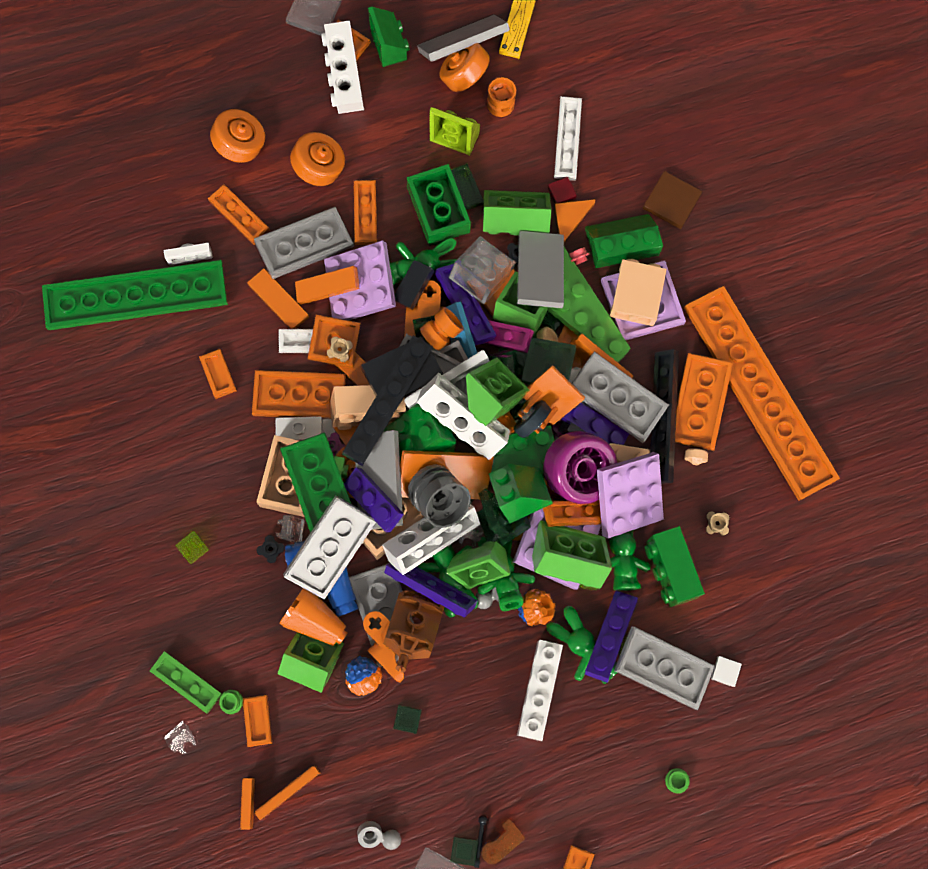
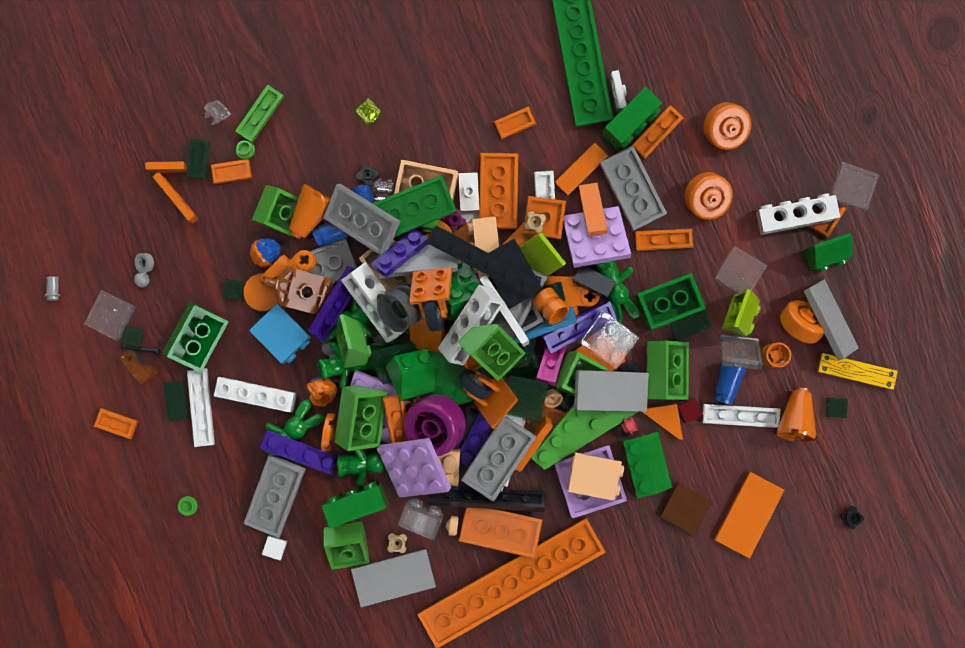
camera: 90 degrees right, 10 degrees up
(224, 237) = (632, 119): none -> green brick
(239, 763) = (198, 159): none -> clear green plate
(379, 336) = (541, 255): none -> lime slope
(404, 131) = (740, 270): none -> clear tile
(417, 684) = (259, 296): none -> orange tile
(418, 458) = (430, 292): none -> orange plate
(465, 657) = (281, 334): none -> dark azure brick
(466, 767) = (195, 337): none -> green slope
(497, 132) = (740, 352): none -> clear tile
(531, 147) = (728, 383): none -> blue plant
(546, 795) = (176, 400): none -> clear green plate
(554, 763) = (200, 408): none -> white tile
(559, 40) = (836, 407): none -> clear green tile
(571, 76) = (798, 418): none -> orange cone
(587, 598) = (328, 432): none -> orange tile
(678, 134) = (749, 514): none -> orange tile
(682, 24) = (852, 523): none -> black plate
(690, 489) = (421, 519): none -> clear brick
(722, 582) = (346, 545): none -> bright green slope
(758, 528) = (393, 577): none -> light grey tile

